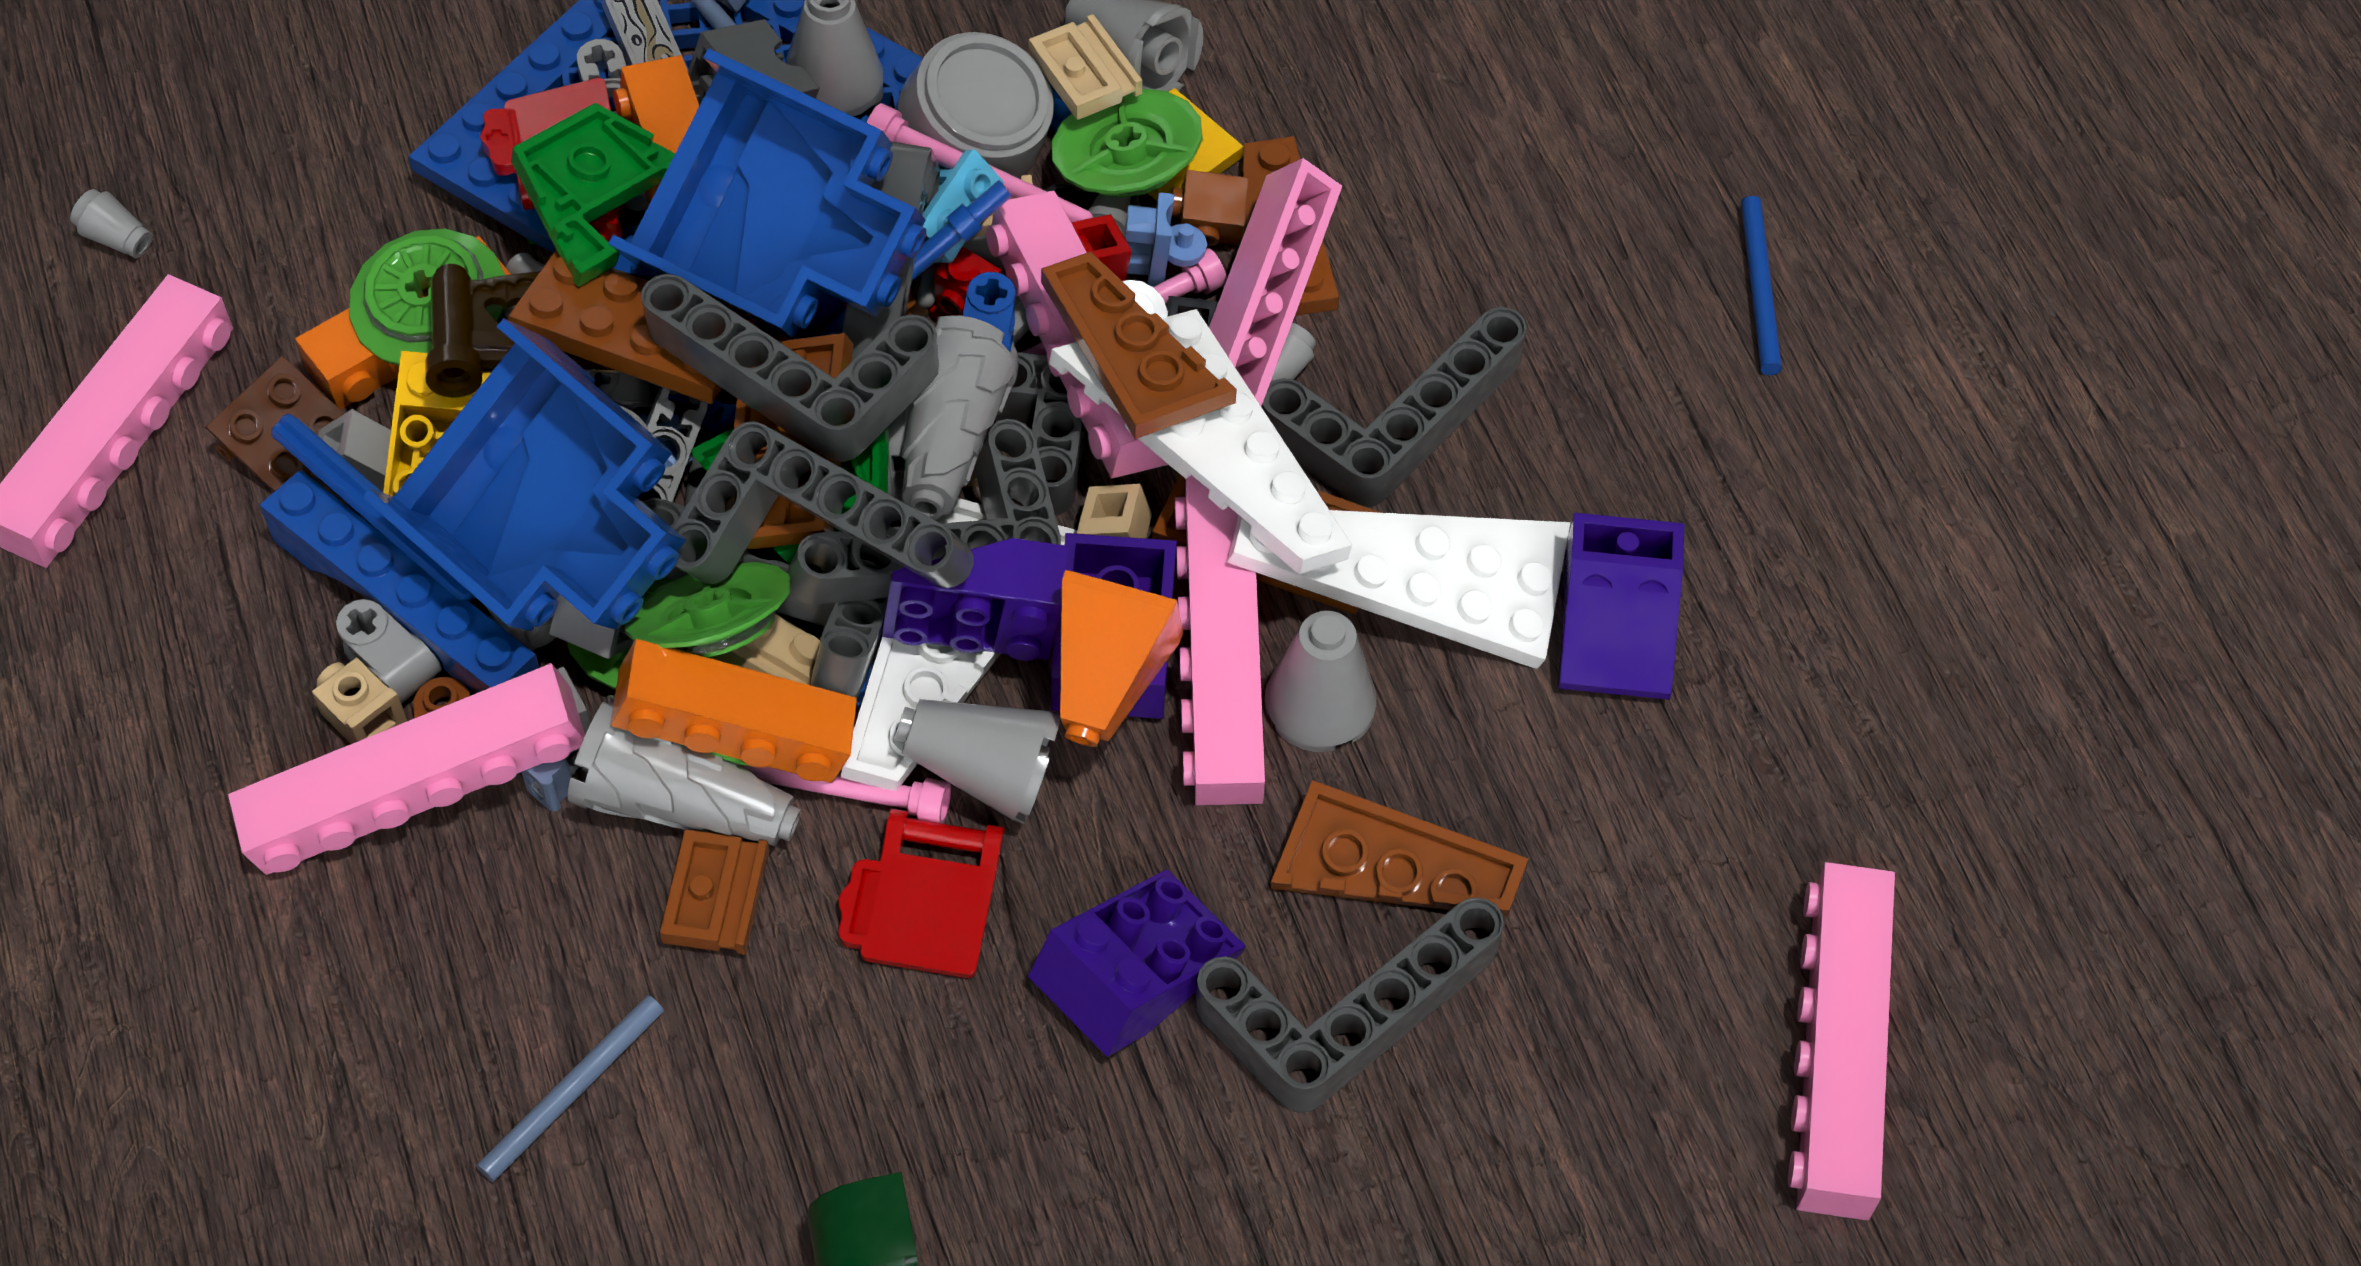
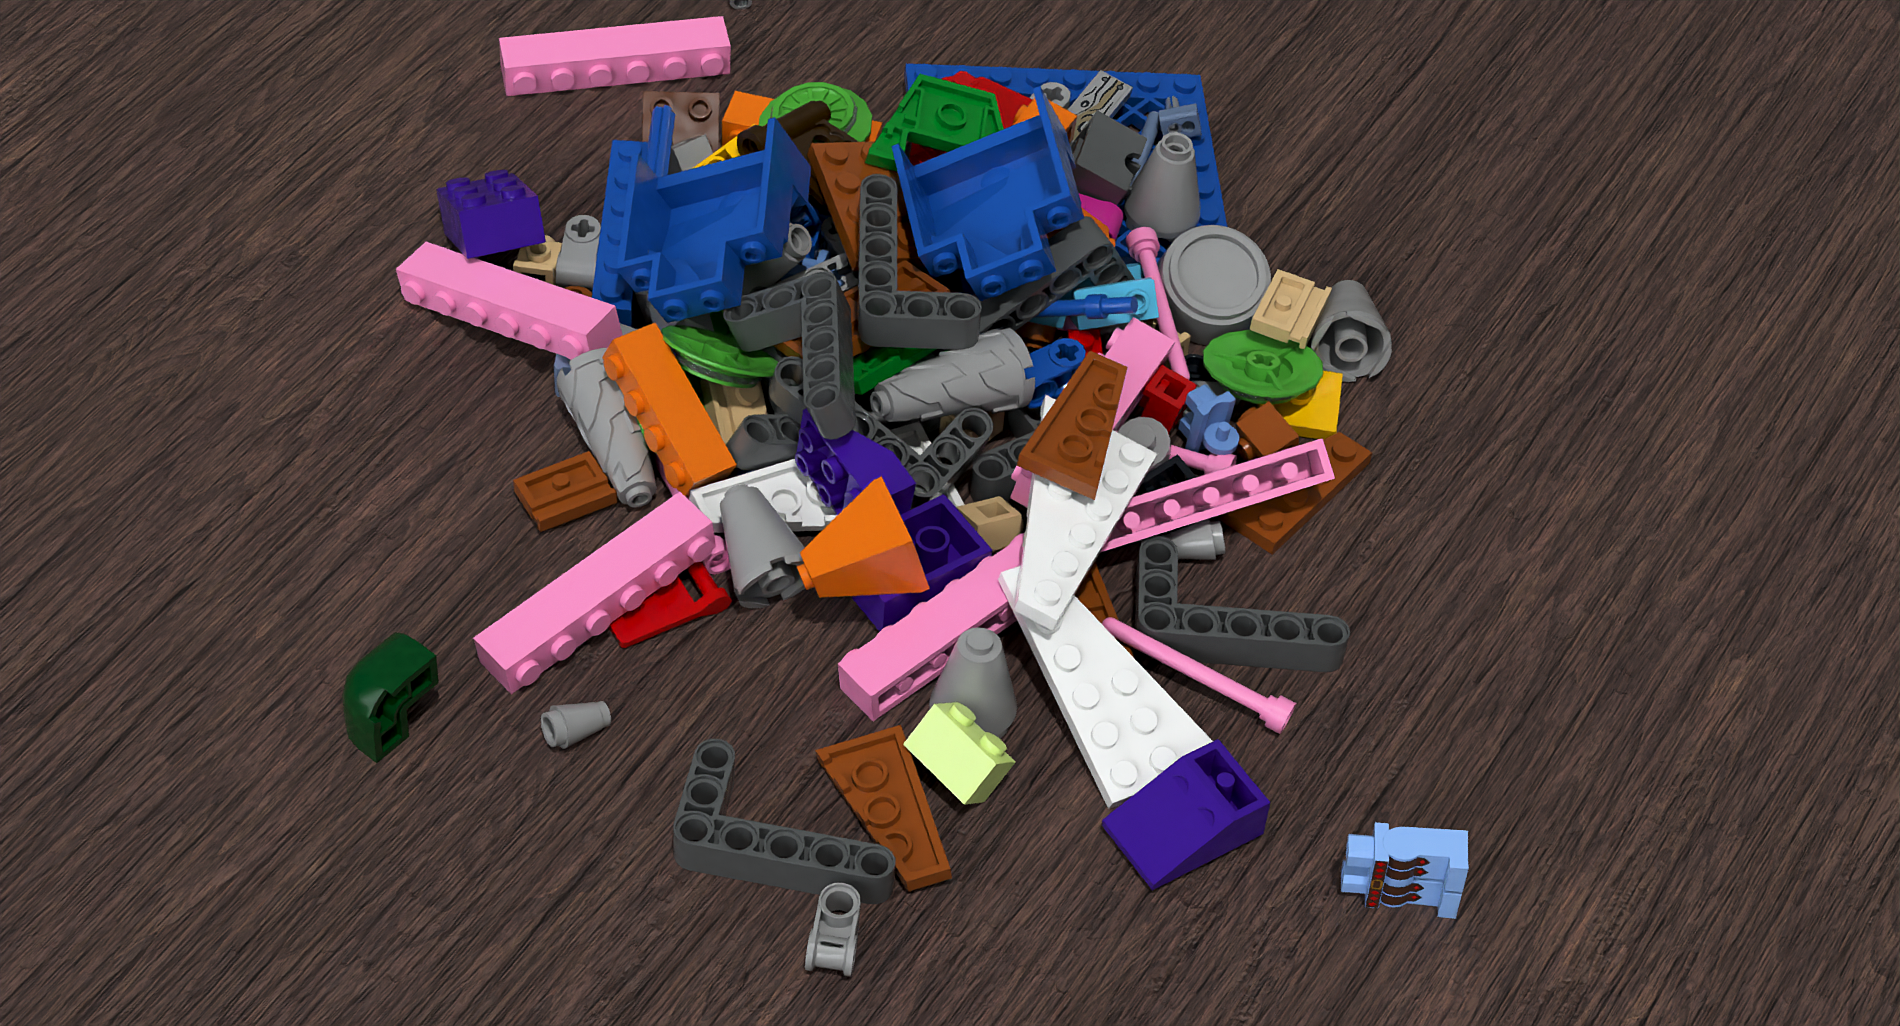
camera: 50 degrees right, 10 degrees down
(261, 701) = (490, 214): none -> dark purple brick
(569, 1088) = (387, 505): sand blue bar -> none
(903, 955) = (595, 593): none -> bright pink brick
(1049, 1092) = (573, 722): none -> light grey cone
(1131, 960) = (690, 701): dark purple slope -> none
(1396, 749) = (960, 752): none -> yellowish green brick
(1527, 1029) = (833, 936): none -> light grey piece
(1544, 444) = (1272, 710): none -> bright pink piece
(1761, 286) = (1530, 765): blue bar -> none
(1842, 448) = (1407, 867): none -> light blue hips

